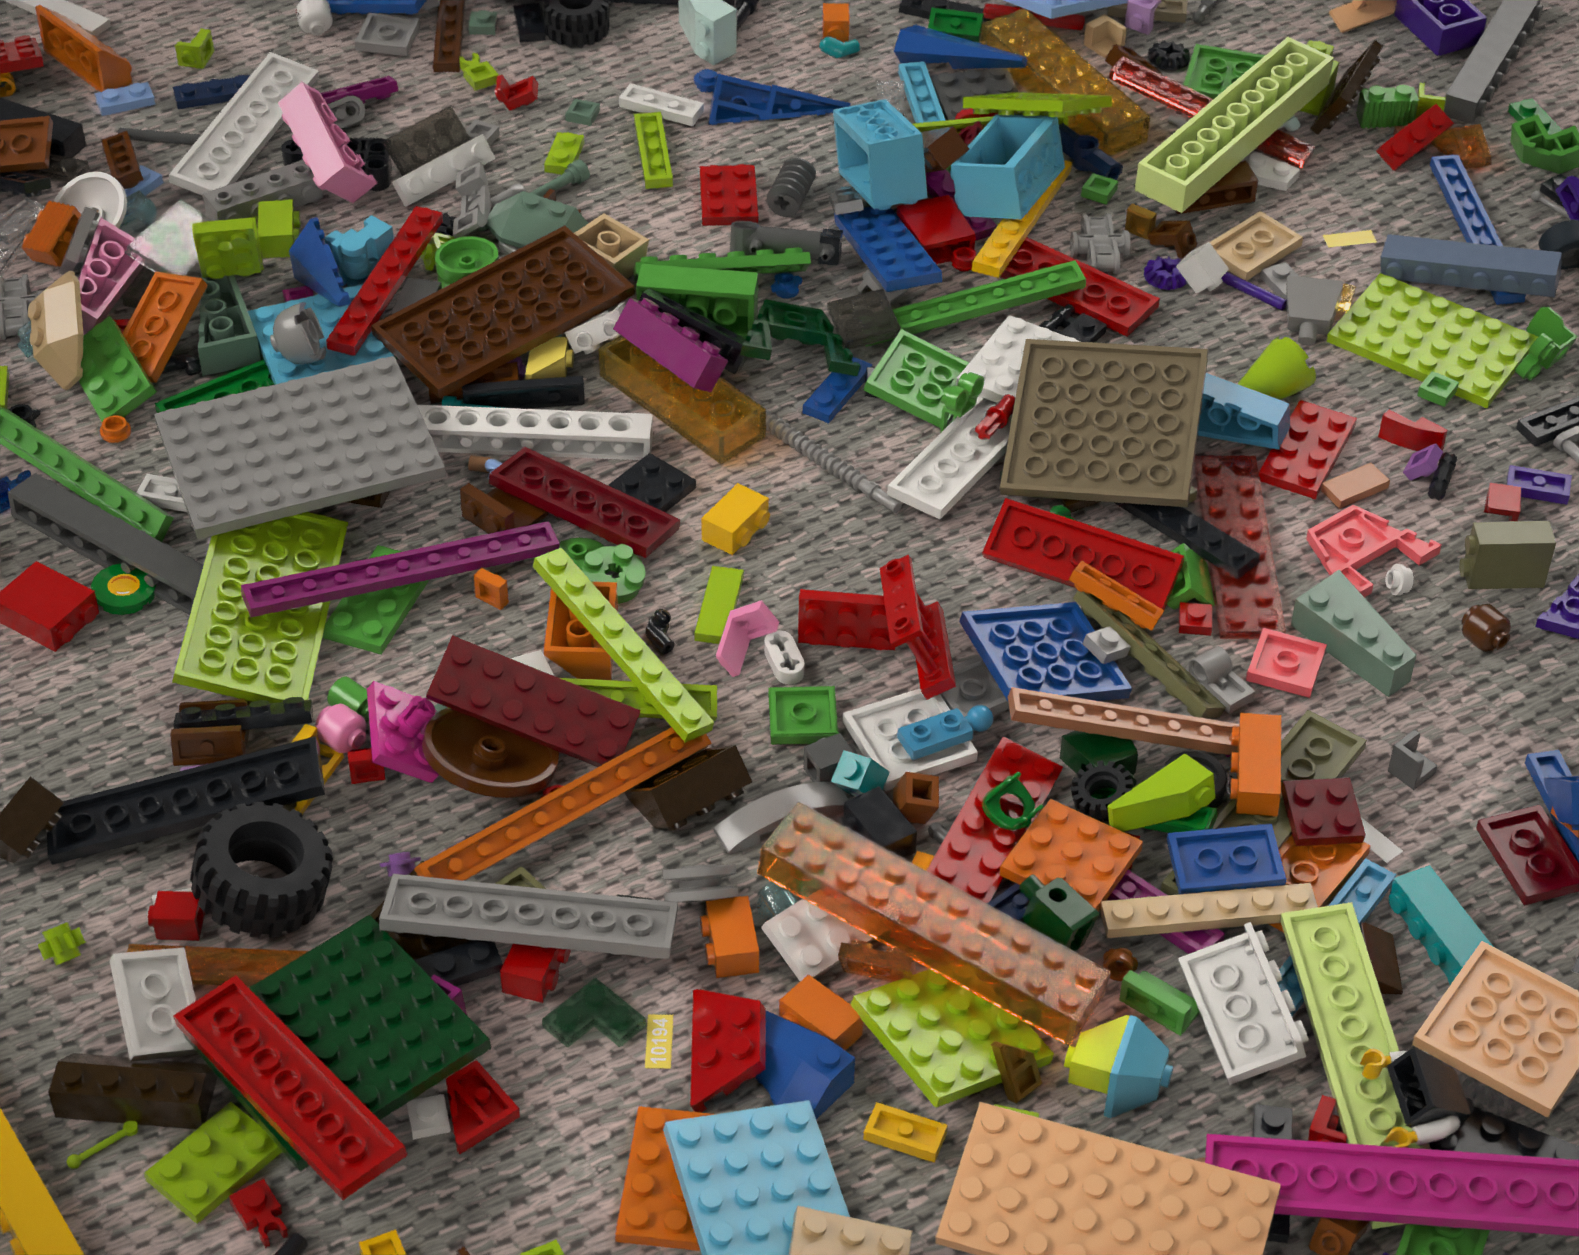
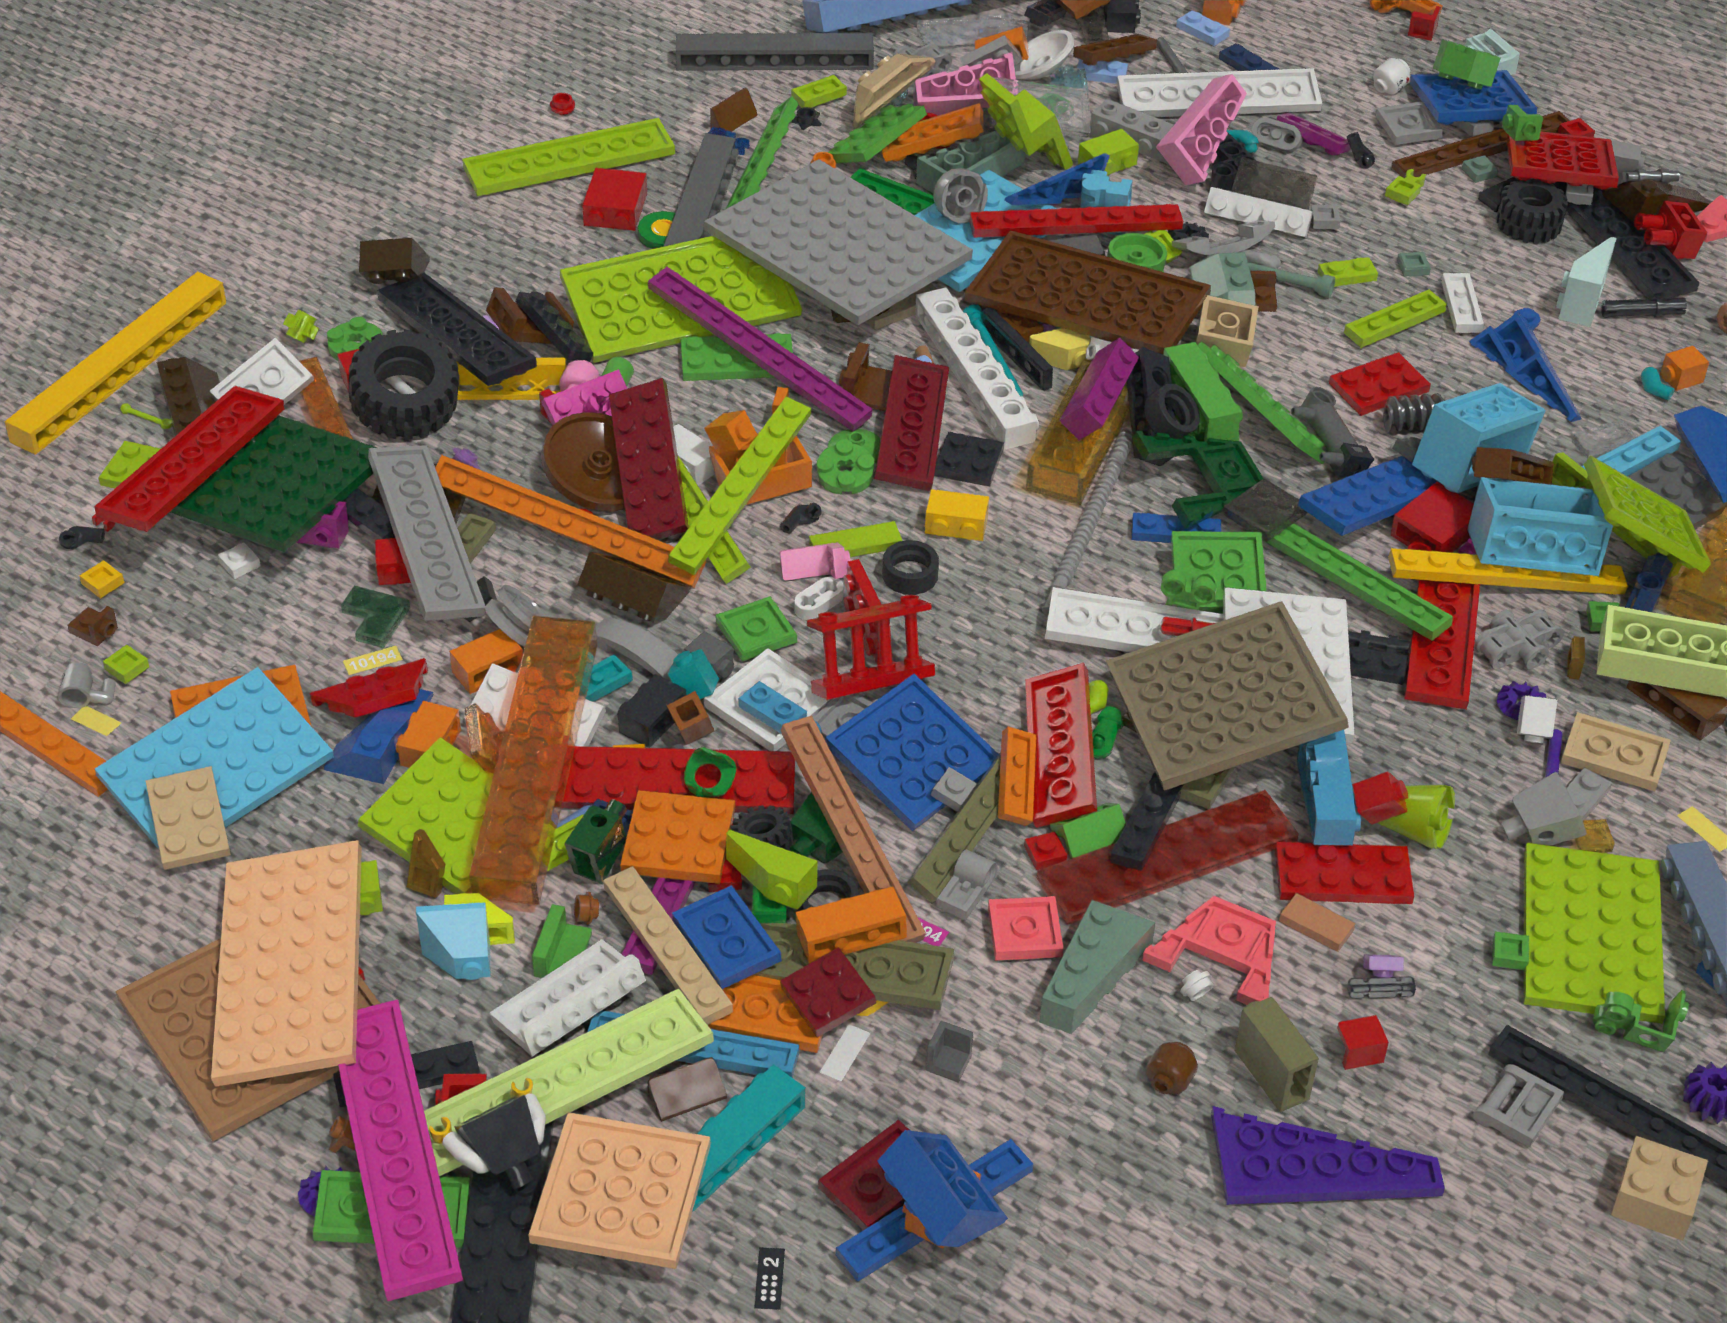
camera: 65 degrees right, 0 degrees up
(100, 894) = (343, 336): none -> bright green plate
(197, 52) = (1290, 37): lime bracket -> none
(406, 78) = (1360, 151): none -> black arm
(477, 1106) = (256, 580): red wing -> none
(517, 94) = (1395, 216): red bracket -> none
(558, 616) = (731, 431): none -> orange brick
(724, 316) = (1183, 405): none -> black tyre
(783, 559) = (910, 582): none -> black tyre
(786, 285) = (1285, 455): blue plate -> none
(905, 1132) = (338, 819): yellow plate -> none
(1174, 234) = (1577, 691): reddish brown bracket -> none
(1271, 376) = (1380, 797): none -> red brick
(1411, 434) = (1421, 945): red slope -> none
(1540, 484) = (1423, 1067): dark purple plate -> none

